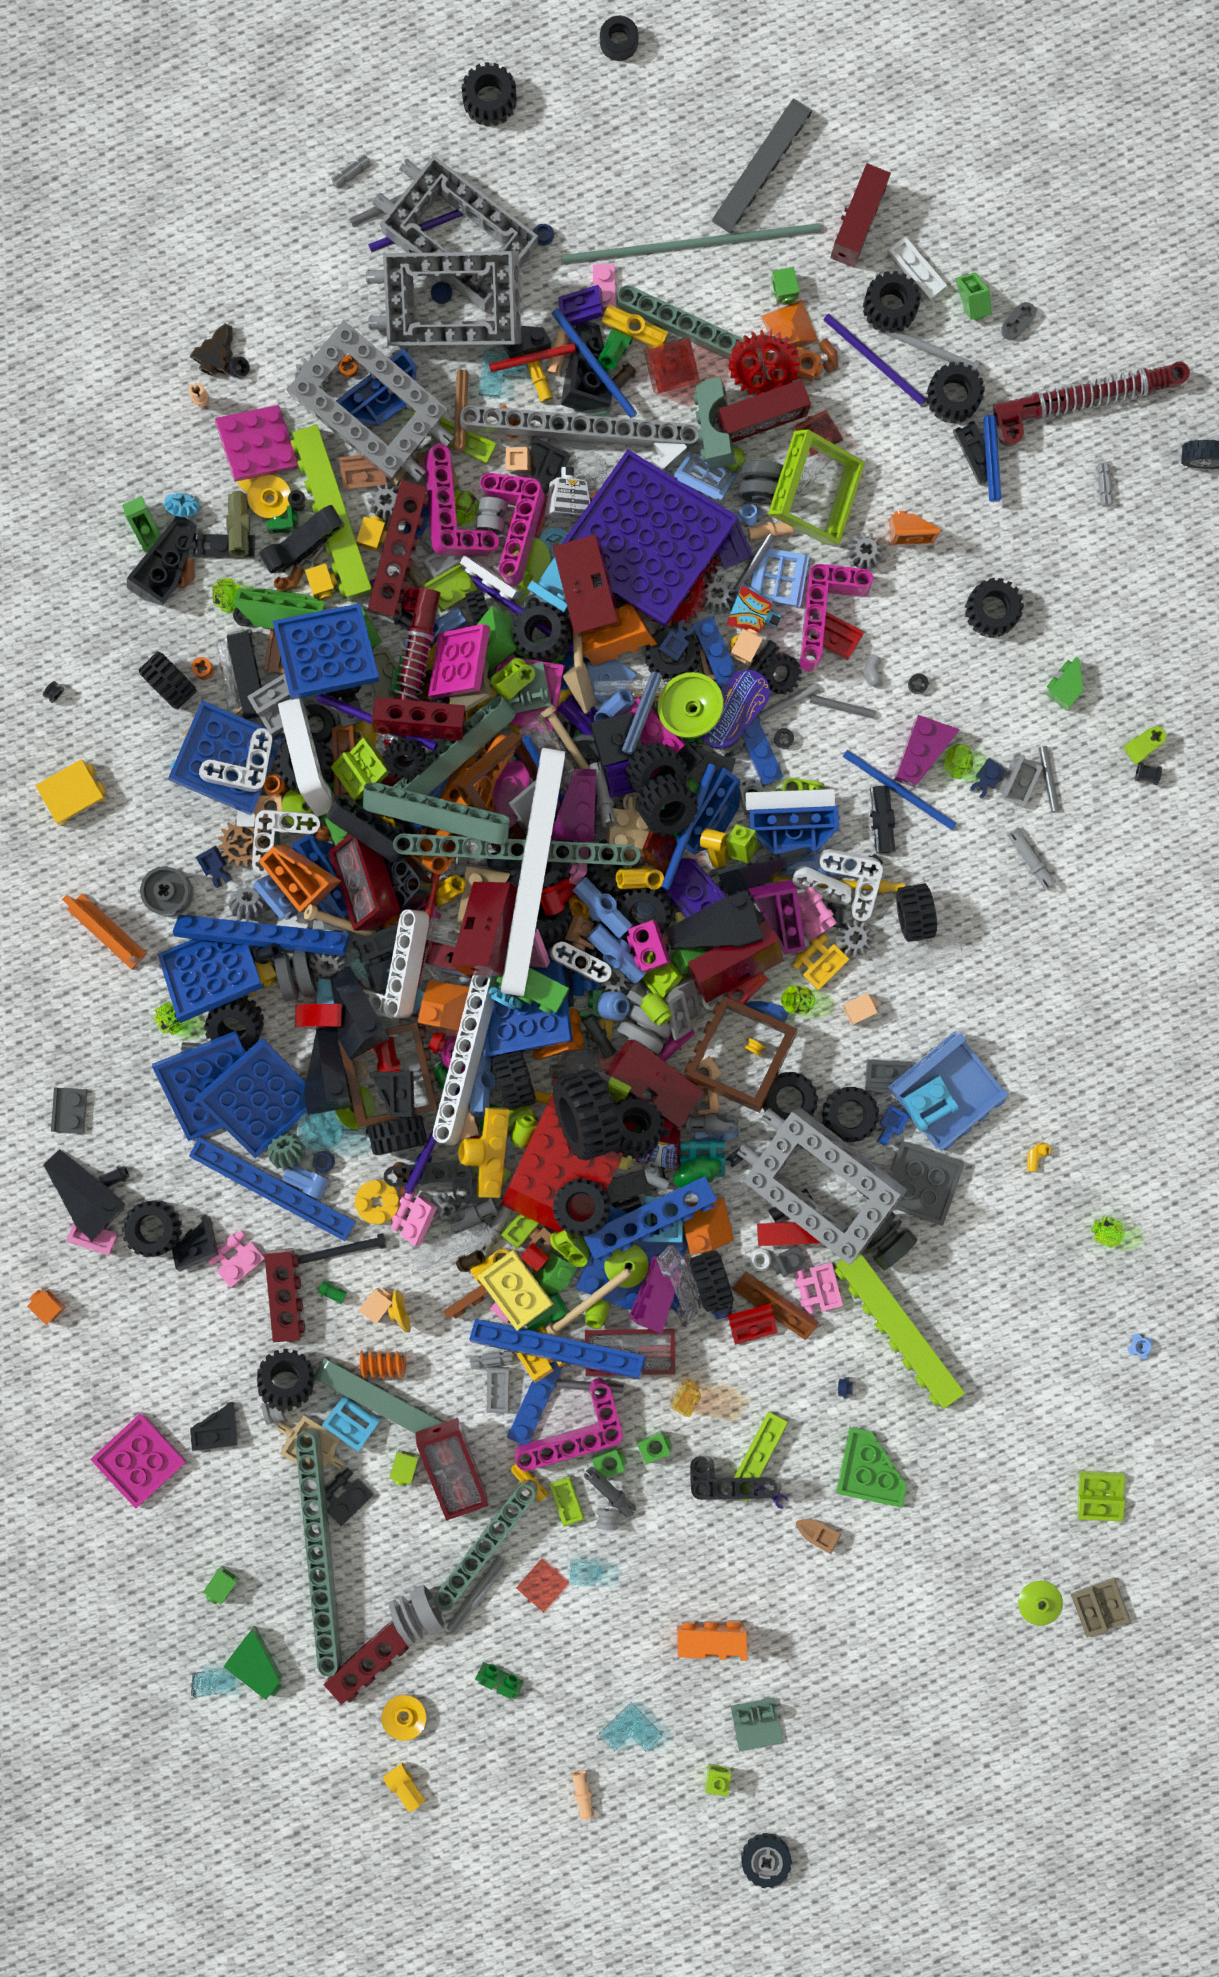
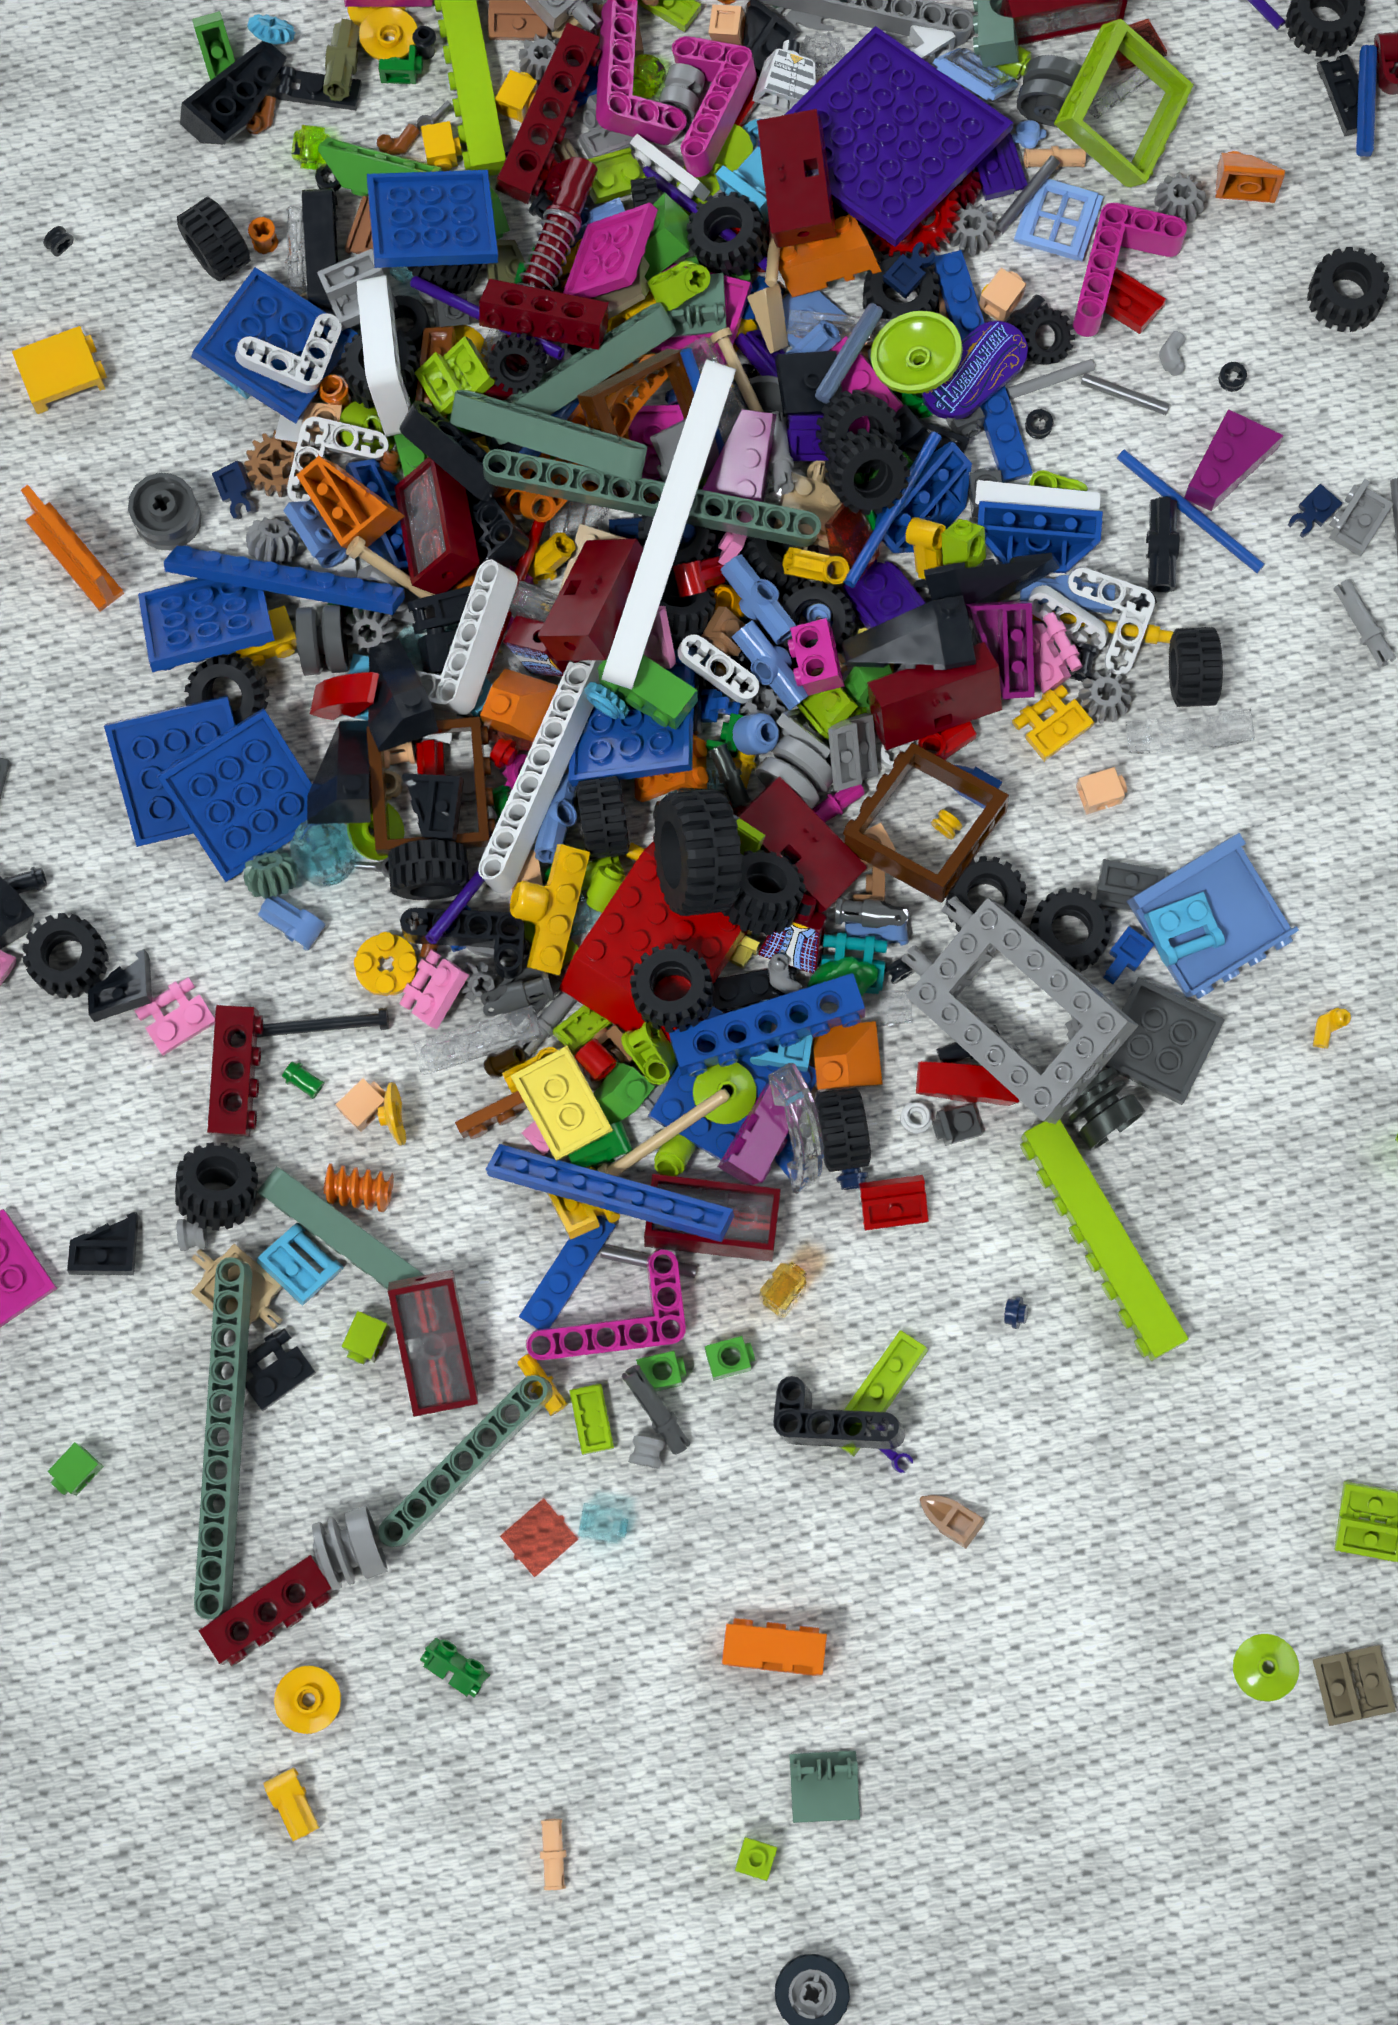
camera: 15 degrees right, 10 degrees down
(166, 1019) = (138, 680): clear neon green head -> none
(211, 1682) = (38, 1606): clear light blue slope -> none
(255, 1665) = (104, 1591): green slope -> none
(264, 954) = (282, 604): black pin -> none
(272, 1188) = (242, 927): blue plate -> none
(302, 541) = (423, 89): black beam -> none
(323, 1161) = (320, 900): dark blue plate -> none
(477, 1595) = (441, 1538): light grey axle -> none
(491, 1359) = (513, 1204): light grey axle -> none
(498, 1389) = (516, 1247): light grey plate -> none
(630, 1723) = (638, 1757): clear light blue plate -> none
(656, 1009) = (814, 737): lime brick -> none
(752, 610) = (1016, 250): torso -> none
(783, 1310) = (941, 1191): dark orange plate -> none
(798, 1000) = (1015, 766): clear neon green head -> none
(825, 1287) = (1005, 1167): bright pink plate -> none
(868, 1471) = (1036, 1437): bright green plate -> none
(959, 761) = (1278, 480): clear neon green head -> none

